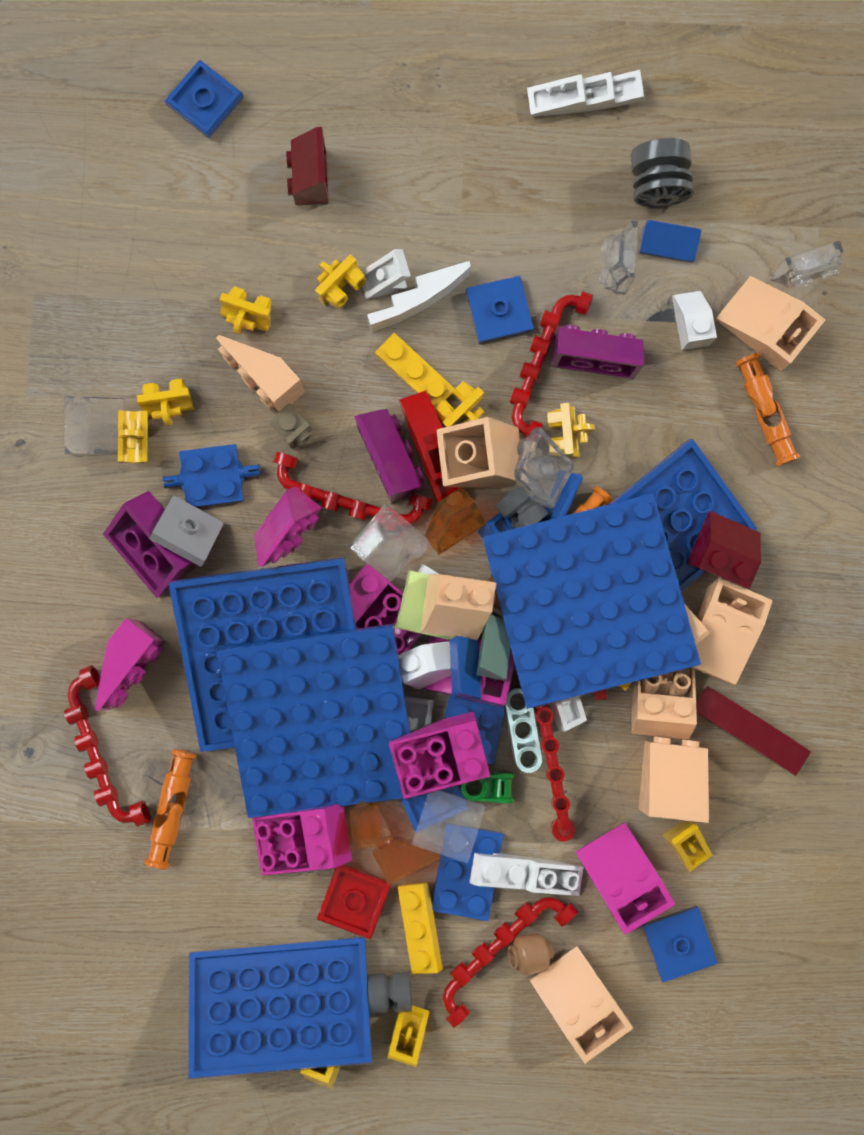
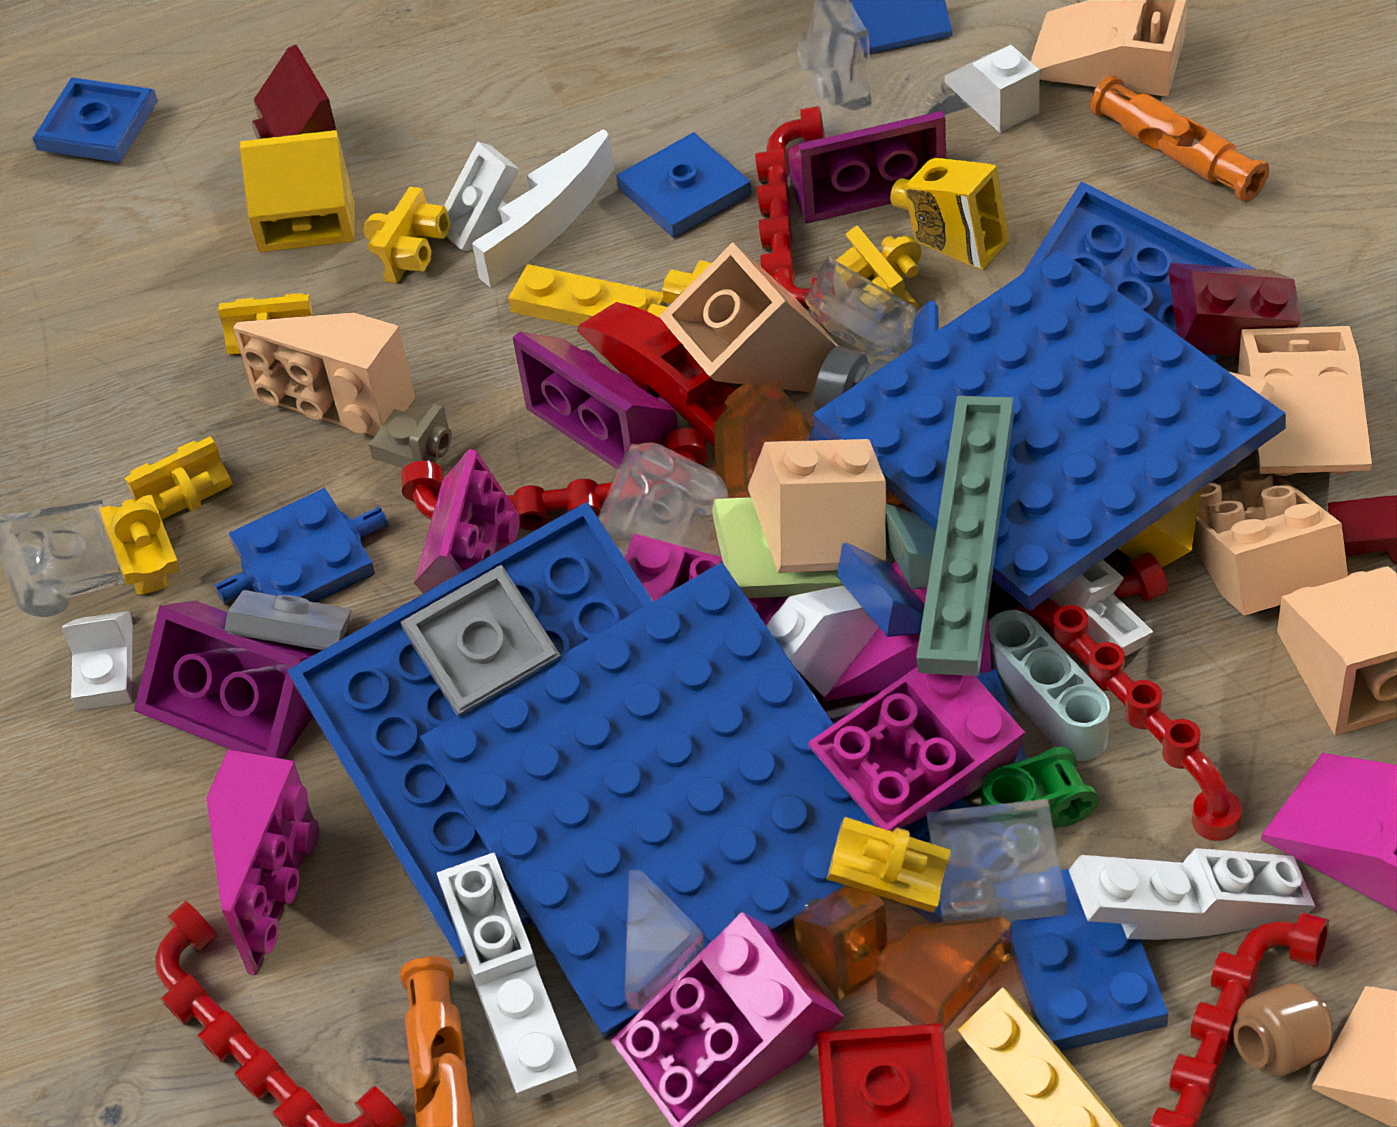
camera: 10 degrees left, 35 degrees down
(96, 494) = (101, 659): none -> white slope
(215, 778) = (507, 978): none -> white slope
(262, 616) = (480, 641): none -> light grey plate
(284, 802) = (658, 941): none -> clear slope
(290, 226) = (297, 191): none -> yellow slope
(397, 816) = (888, 864): none -> yellow hips
(513, 668) = (966, 537): none -> sand green plate
(624, 409) = (955, 209): none -> yellow torso

